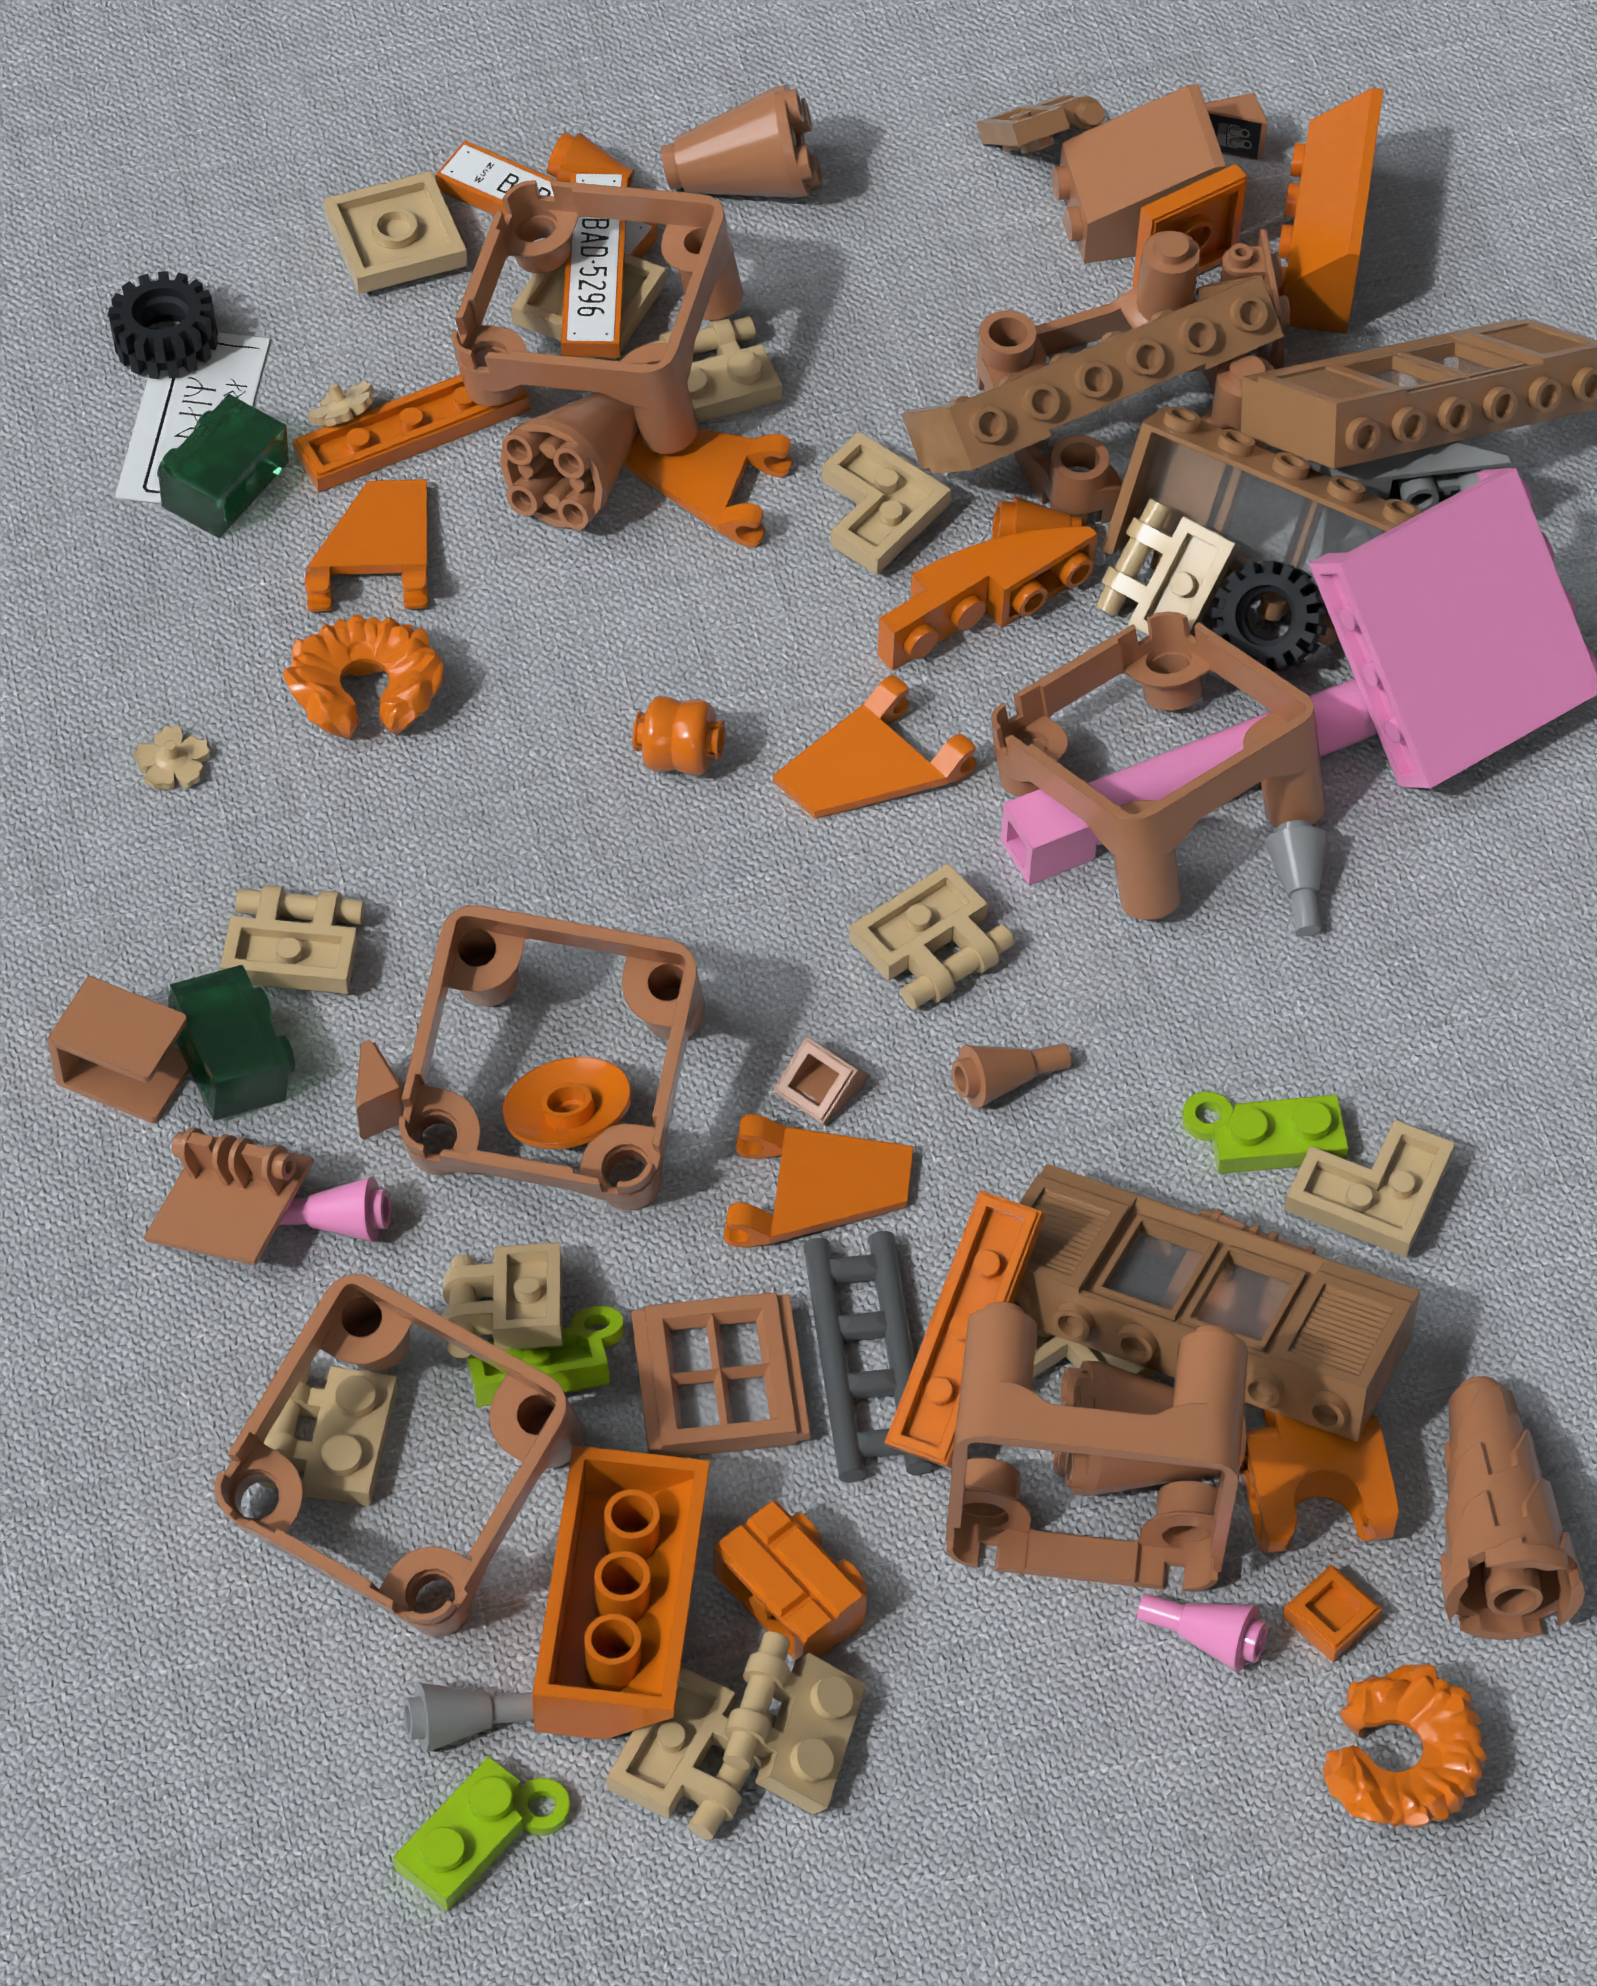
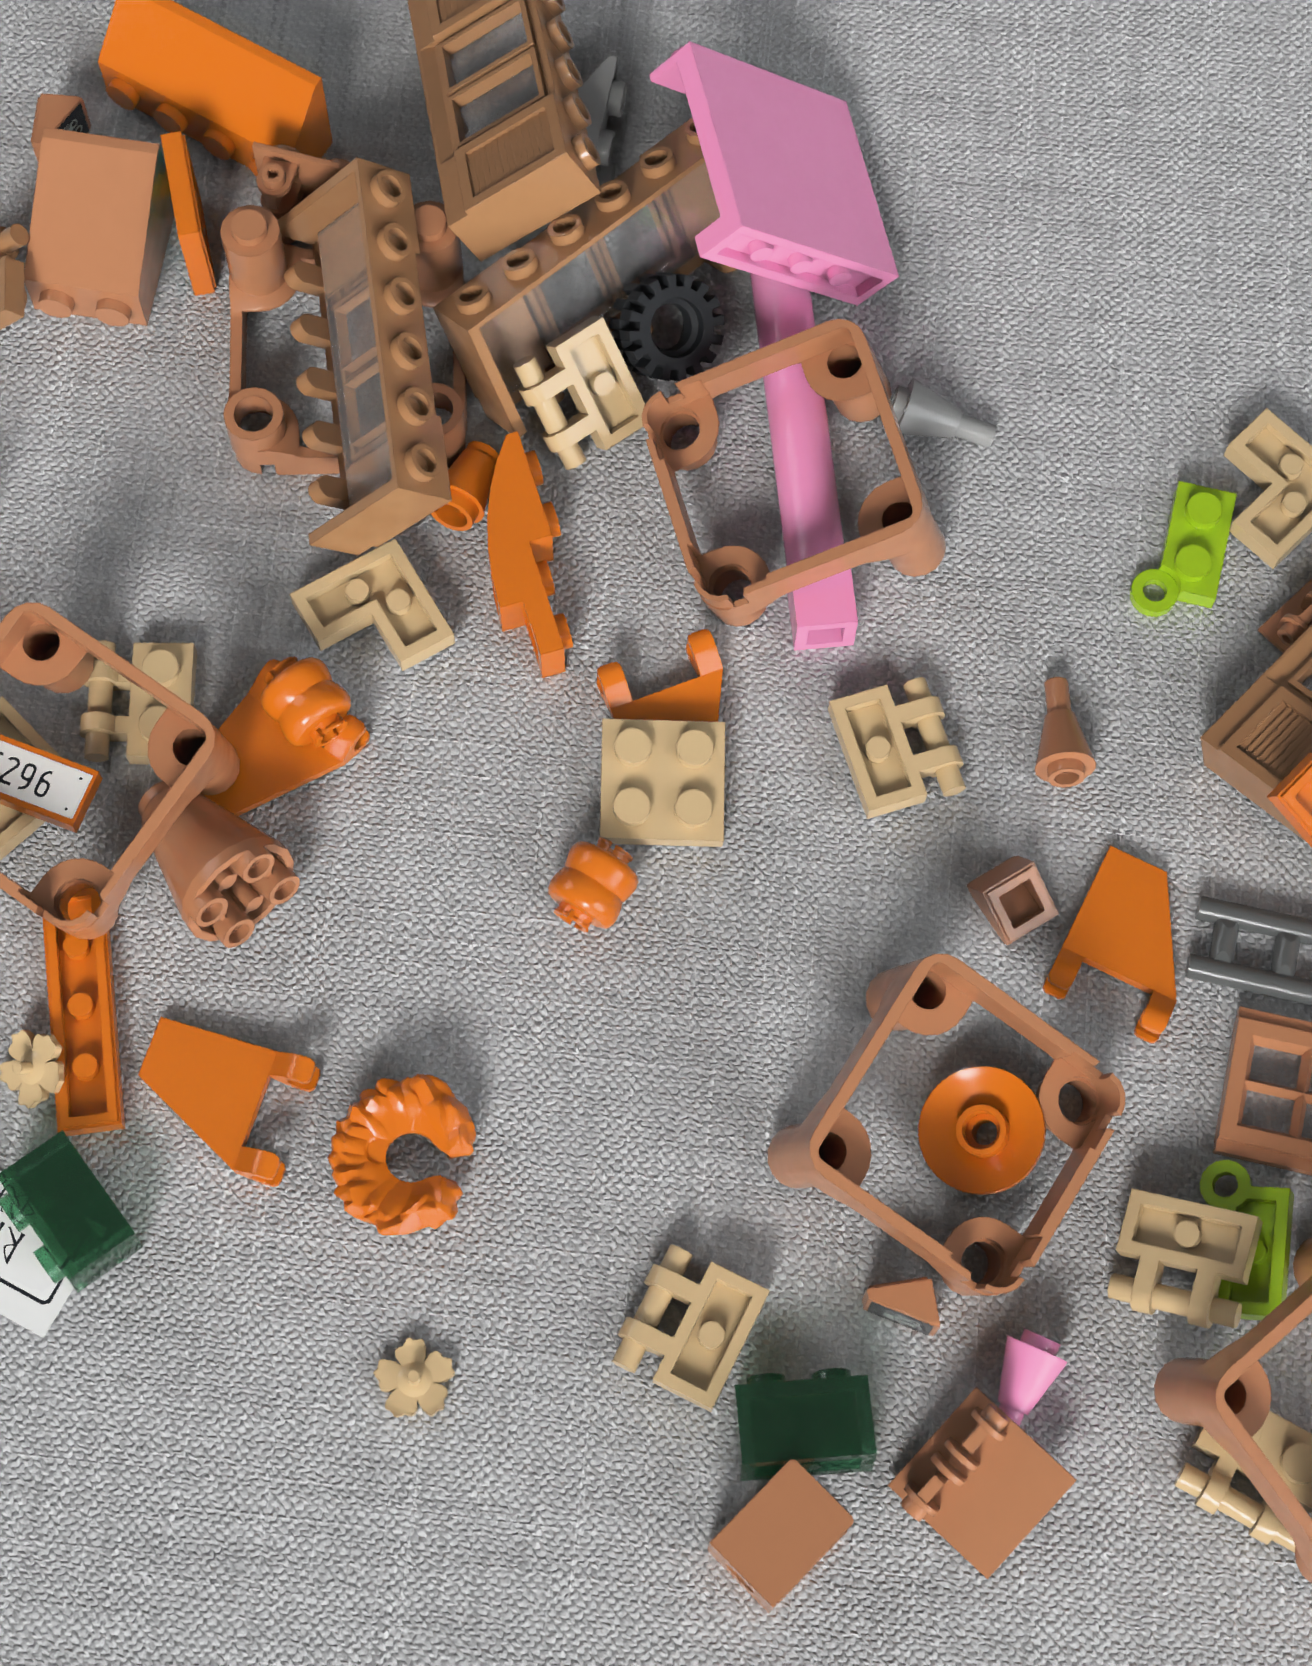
camera: 70 degrees left, 15 degrees up
(753, 465) = (305, 701): none -> orange piece
(806, 762) = (662, 782): none -> tan plate

